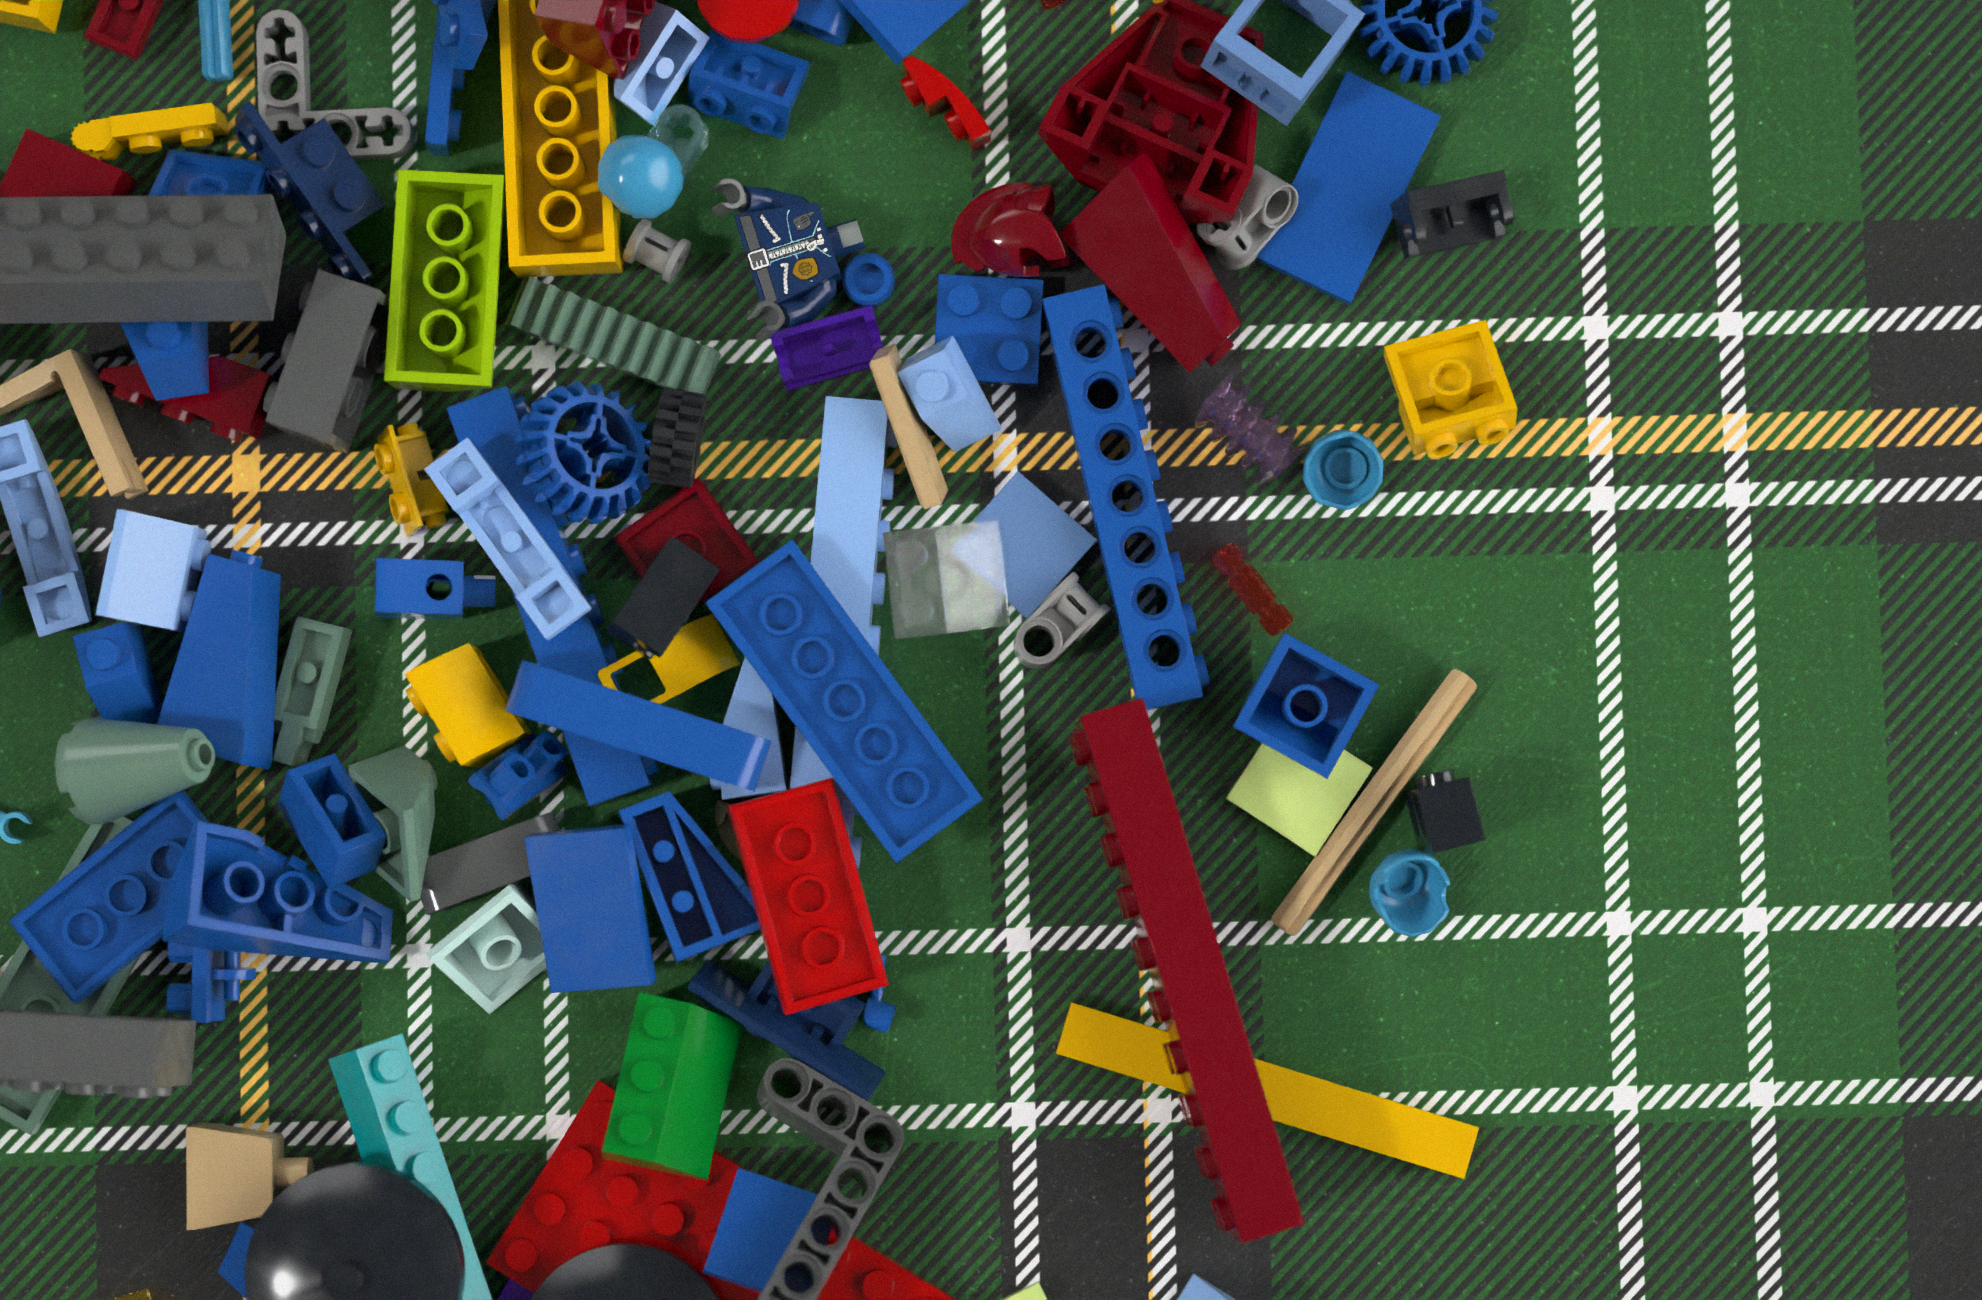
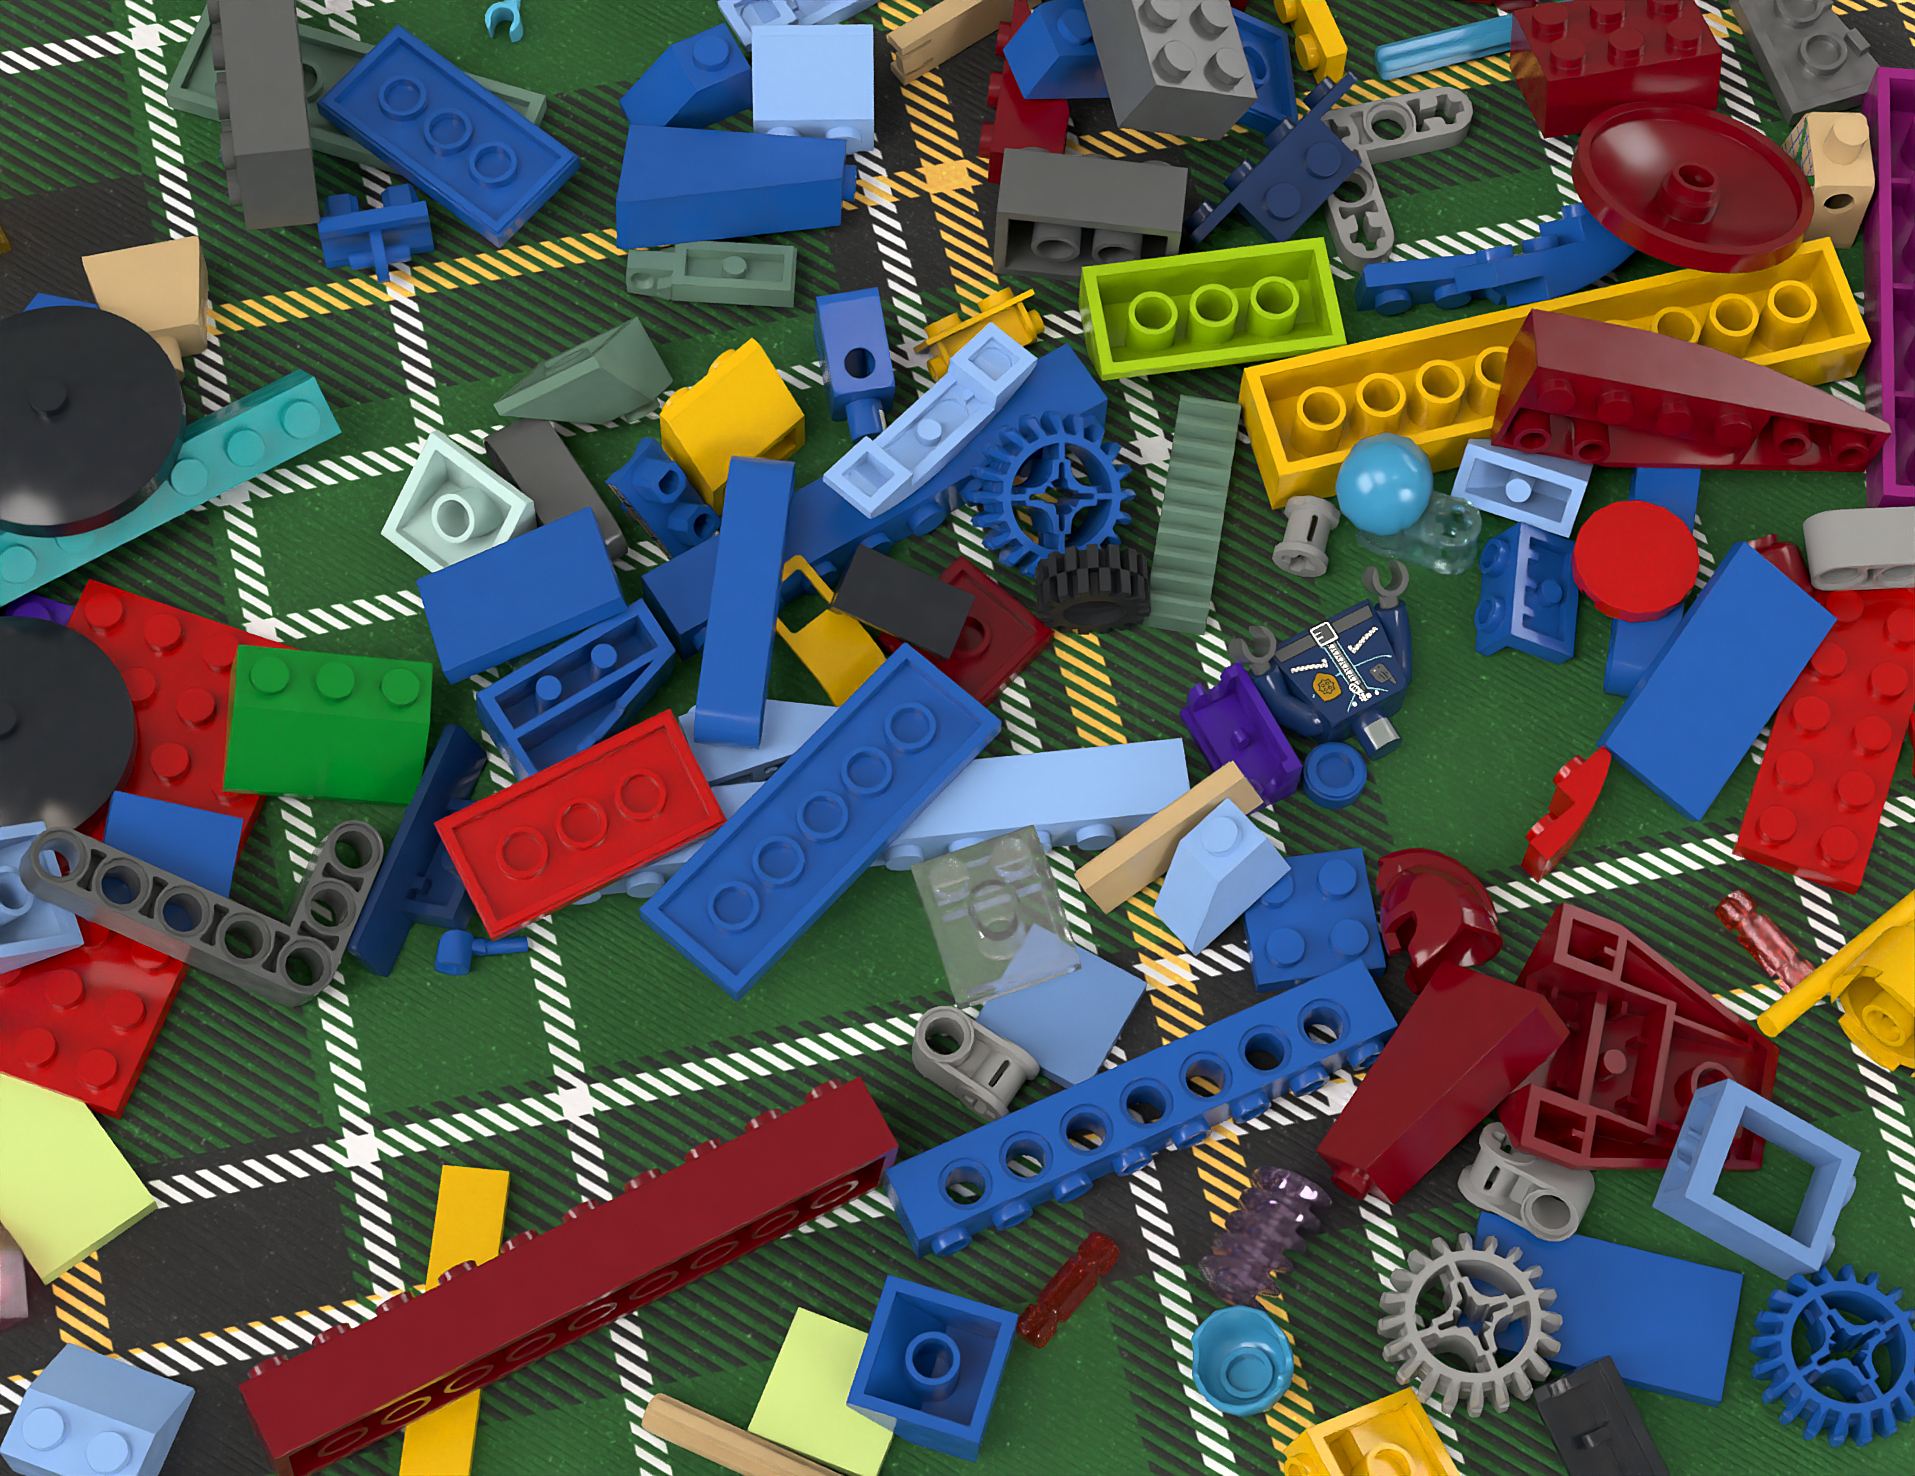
camera: 70 degrees right, 20 degrees down
(127, 765) = (589, 90): sand green cone -> none
(254, 900) = (465, 261): blue wedge -> none
(331, 820) = (571, 314): blue brick -> none
(1378, 286) = (1443, 1336): none -> light grey gear

